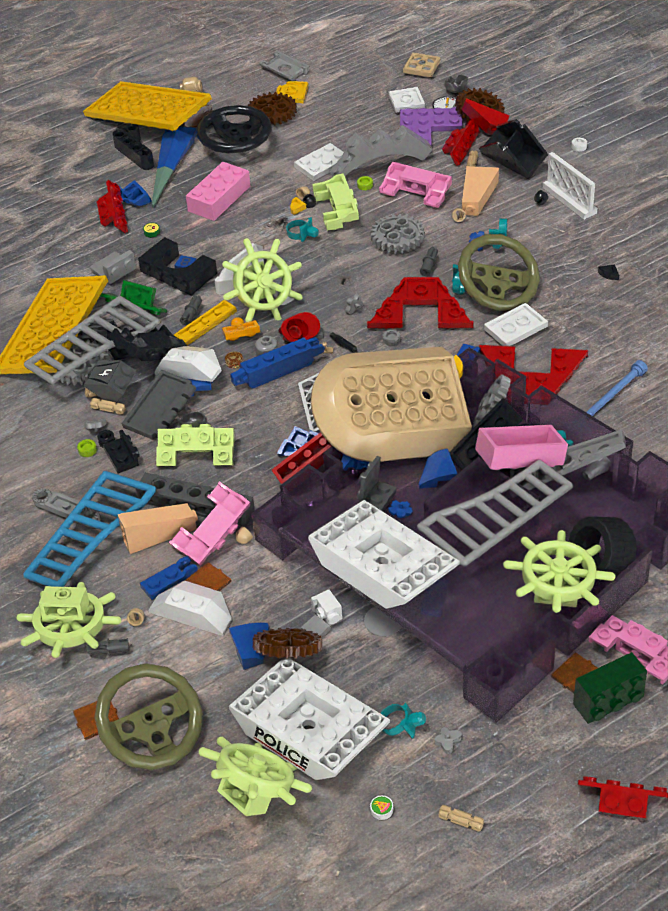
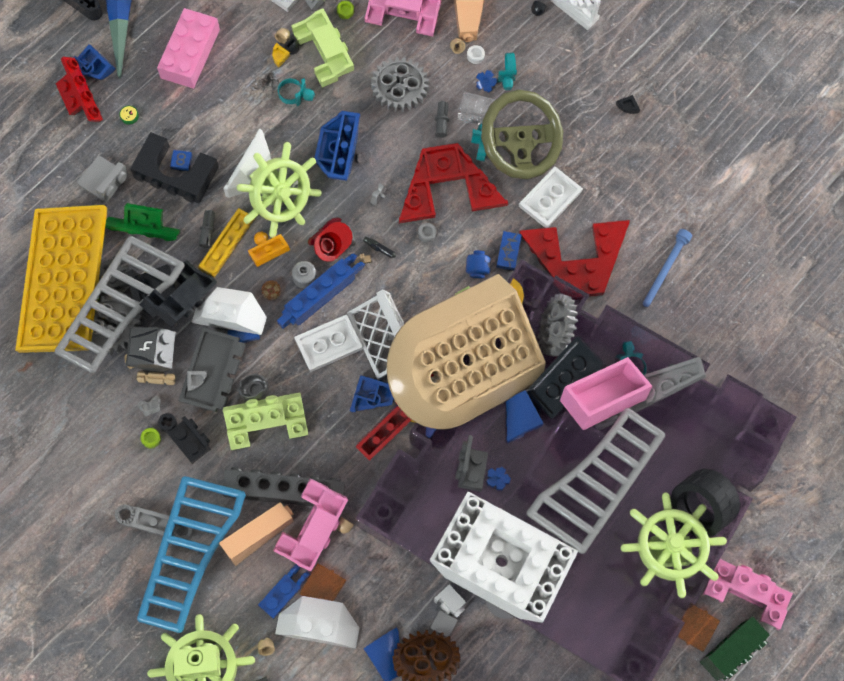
camera: 20 degrees left, 25 degrees up
(142, 407) = (195, 379): none -> light grey tile
(273, 401) = (328, 343): none -> white plate
(328, 263) = (338, 145): none -> blue wedge
(453, 253) = (473, 108): none -> clear brick
(474, 223) = (475, 54): none -> white tile

